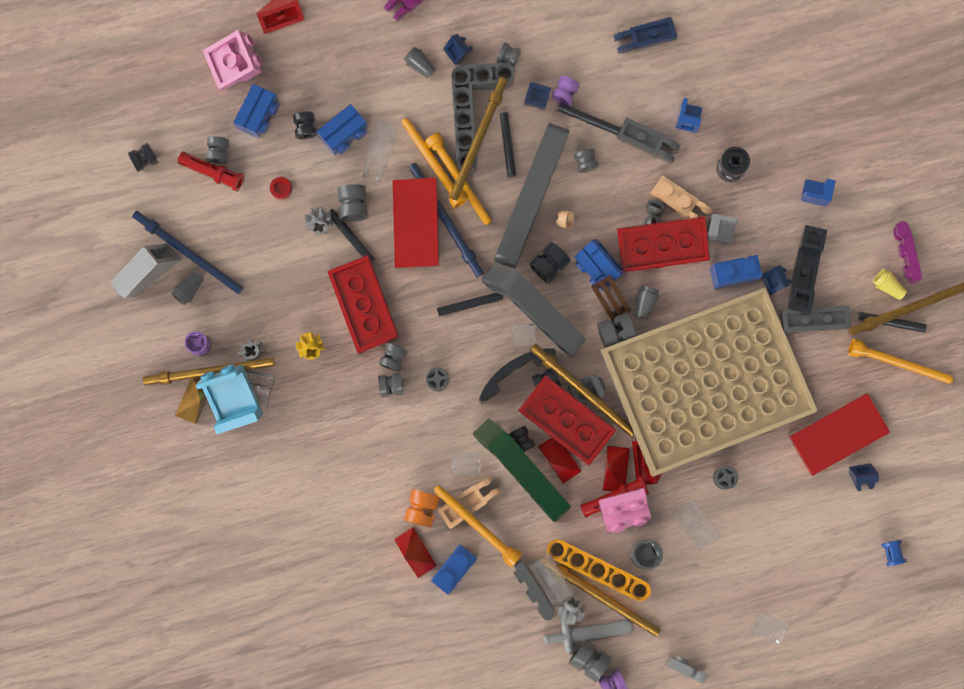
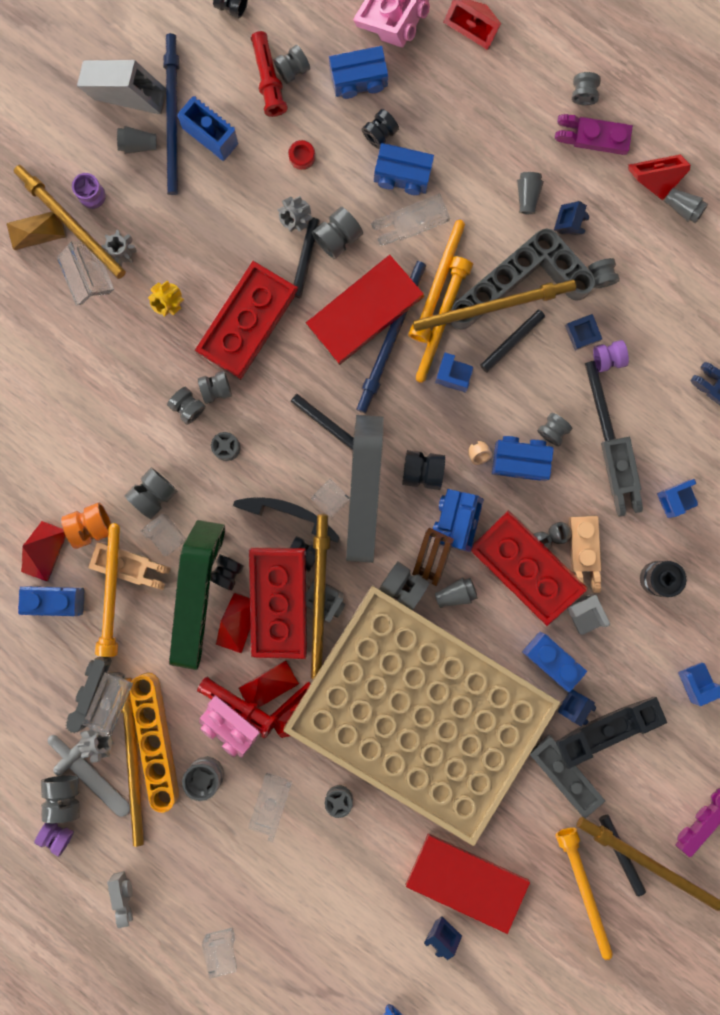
camera: 55 degrees right, 5 degrees up
(219, 234) = (208, 128): none -> blue brick
(230, 398) = (56, 261): medium azure panel -> none
(432, 450) = (151, 493): none -> dark grey wheel
(501, 197) = (454, 373): none -> blue panel
(531, 195) = (478, 401): dark grey beam -> none
(590, 196) = (522, 459): none -> blue brick
(889, 284) = (659, 825): light yellow cone -> none

